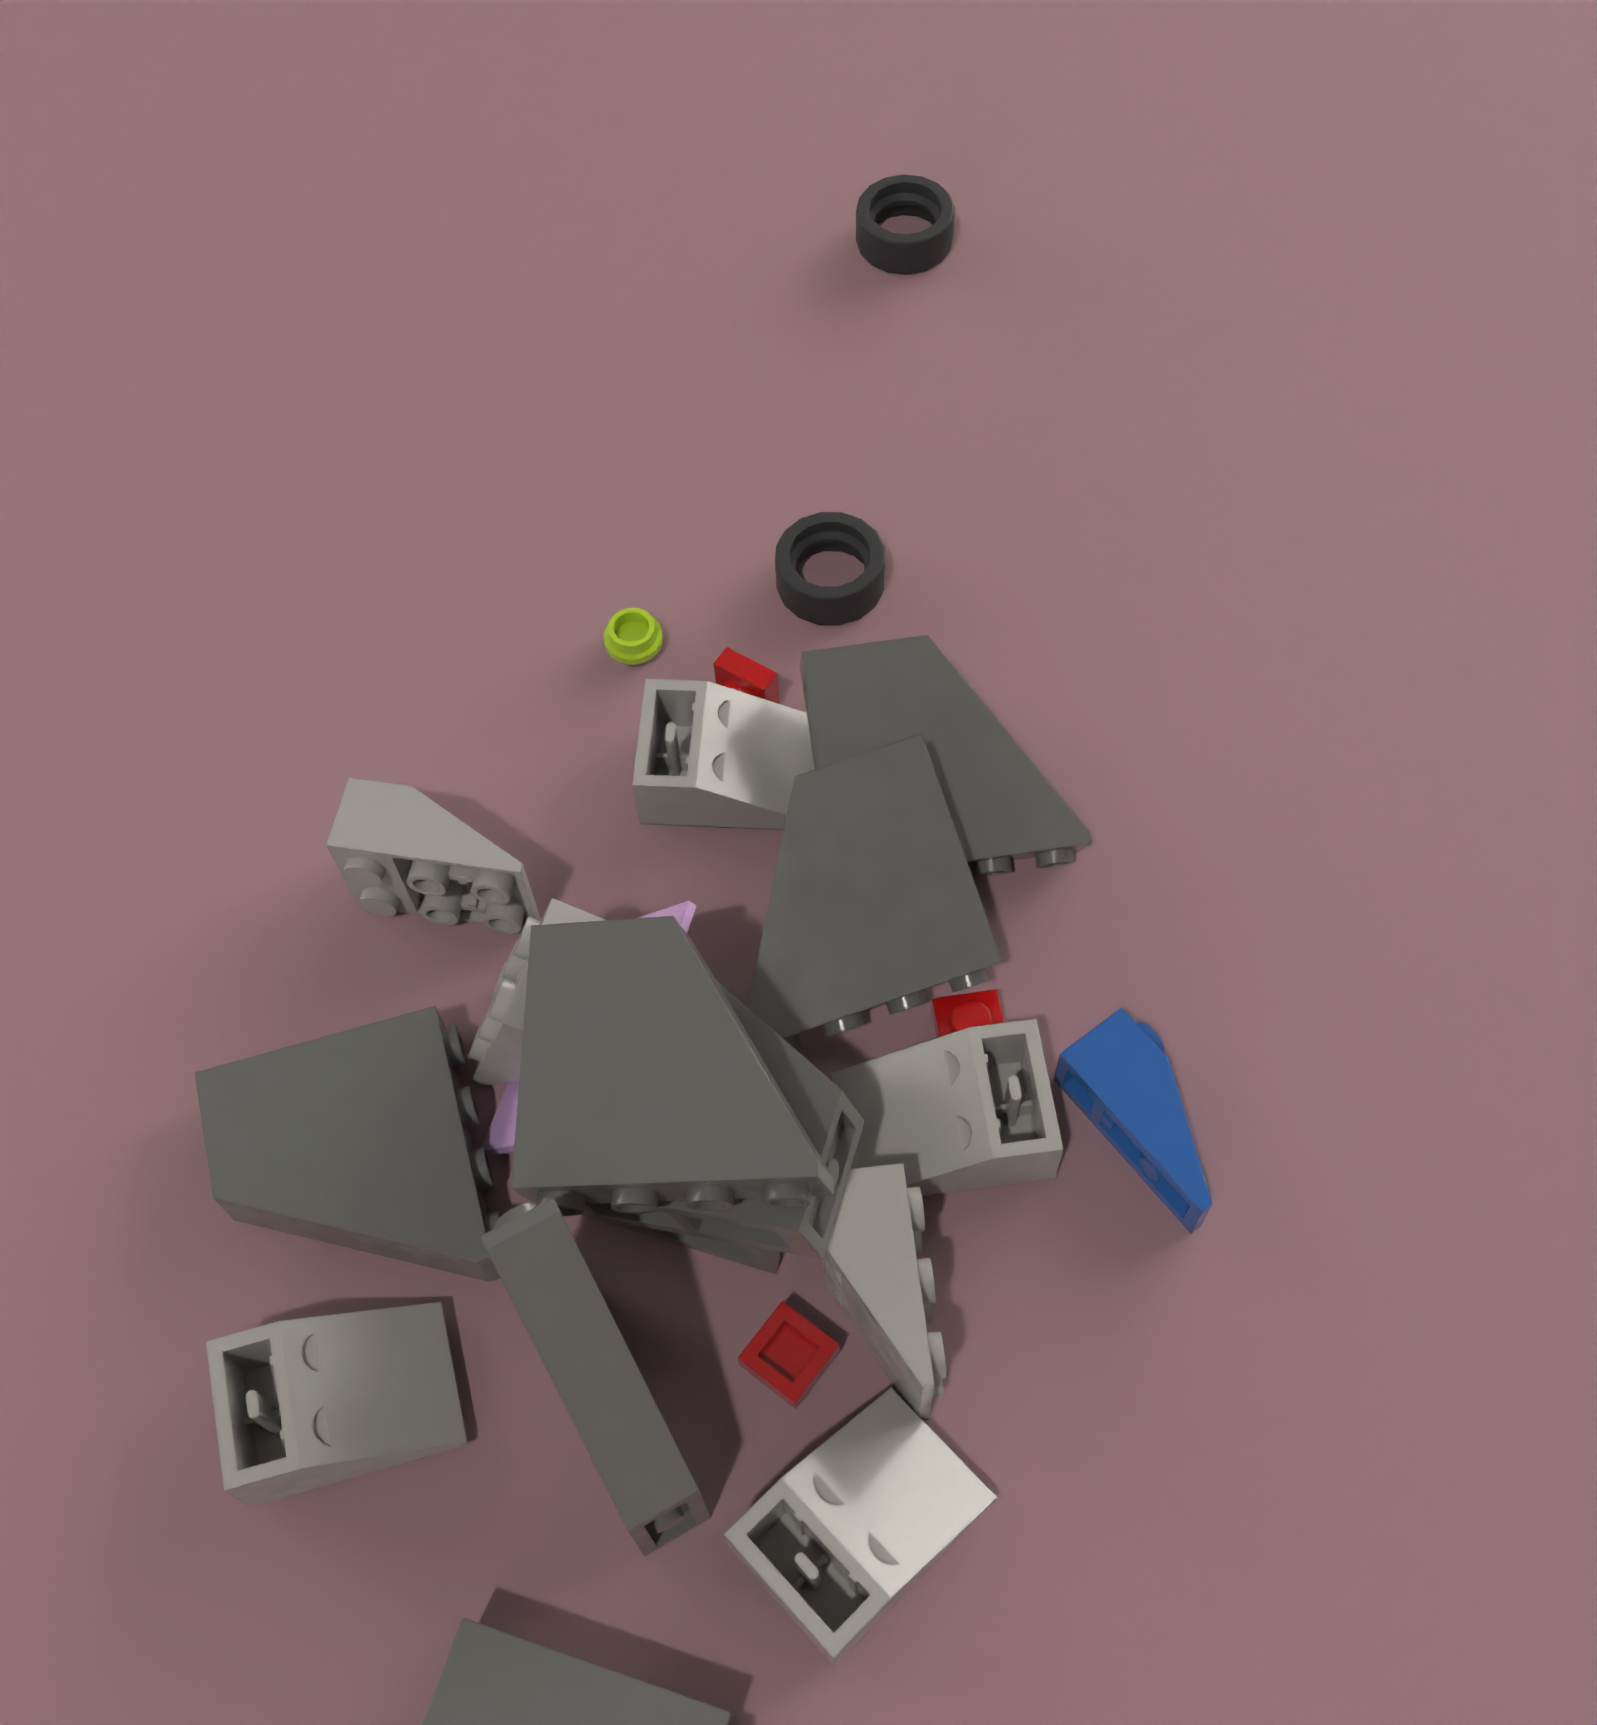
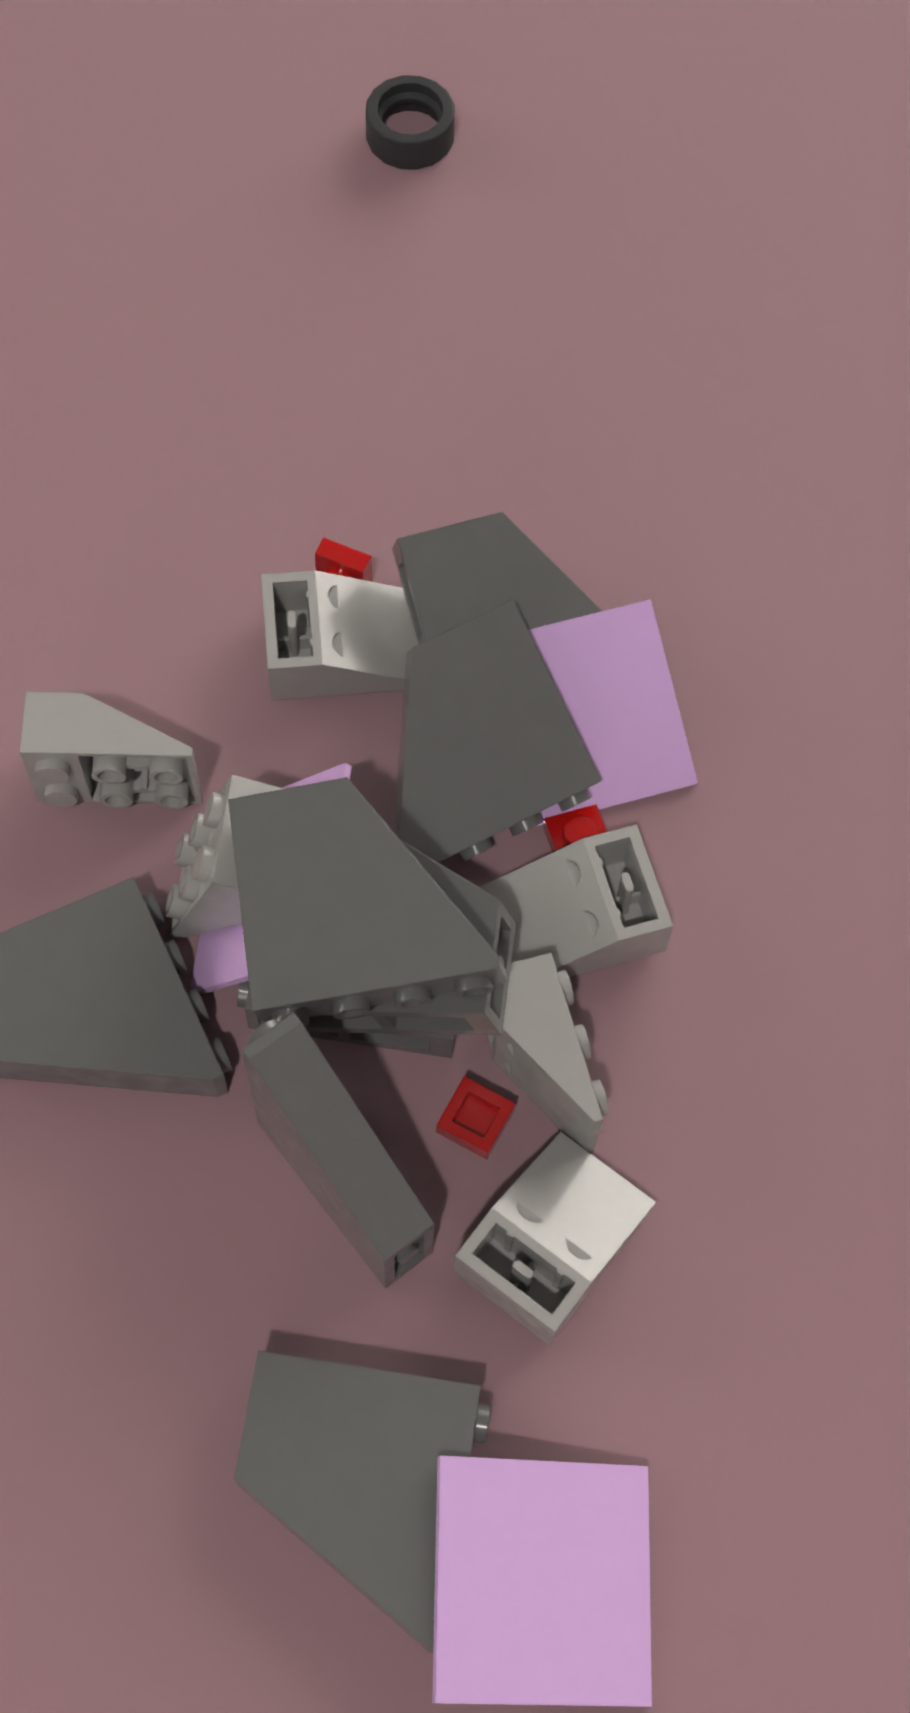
camera: 15 degrees left, 5 degrees up
(332, 1398) = (115, 1203): light grey slope -> none
(633, 636) = (234, 535): lime plate -> none
(830, 533) = (396, 422): black tyre -> none
(1039, 872) = (620, 701): none -> lavender piece
(1132, 1098) = (719, 880): blue slope -> none

